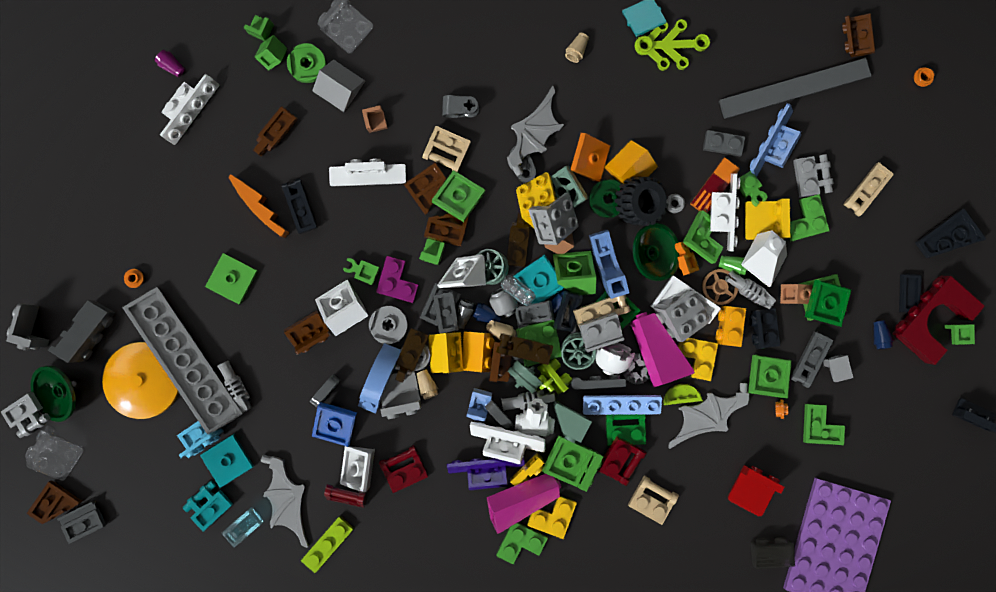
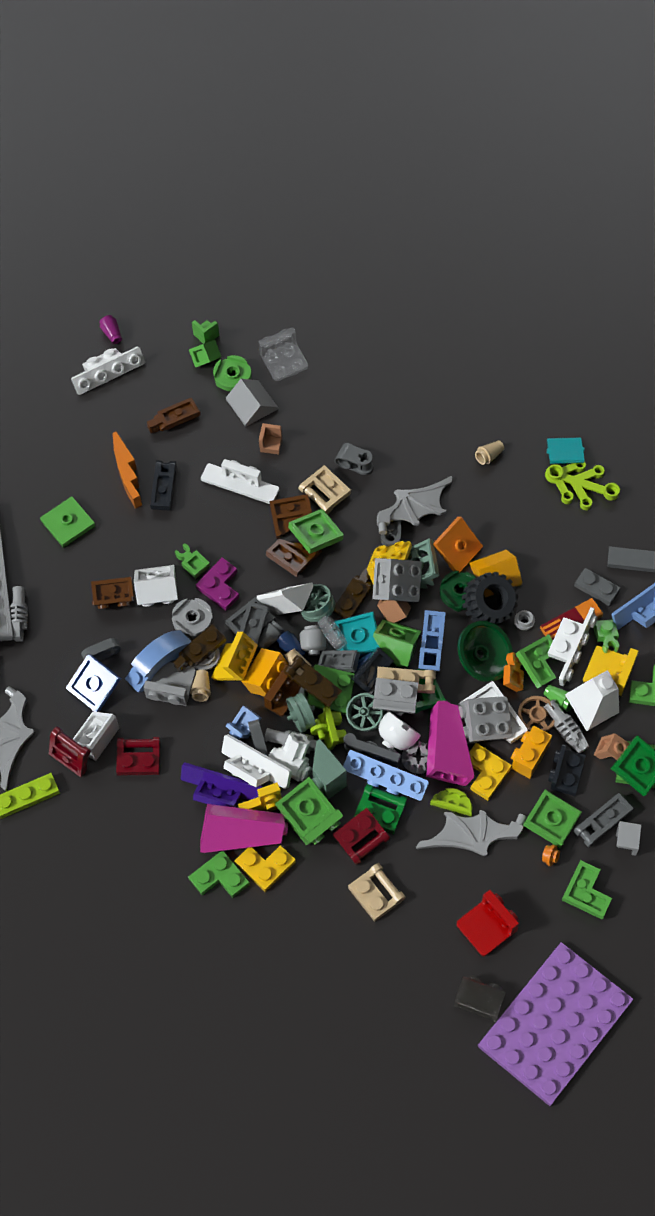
camera: 30 degrees right, 25 degrees down
(432, 251) = (267, 572): bright green panel -> none

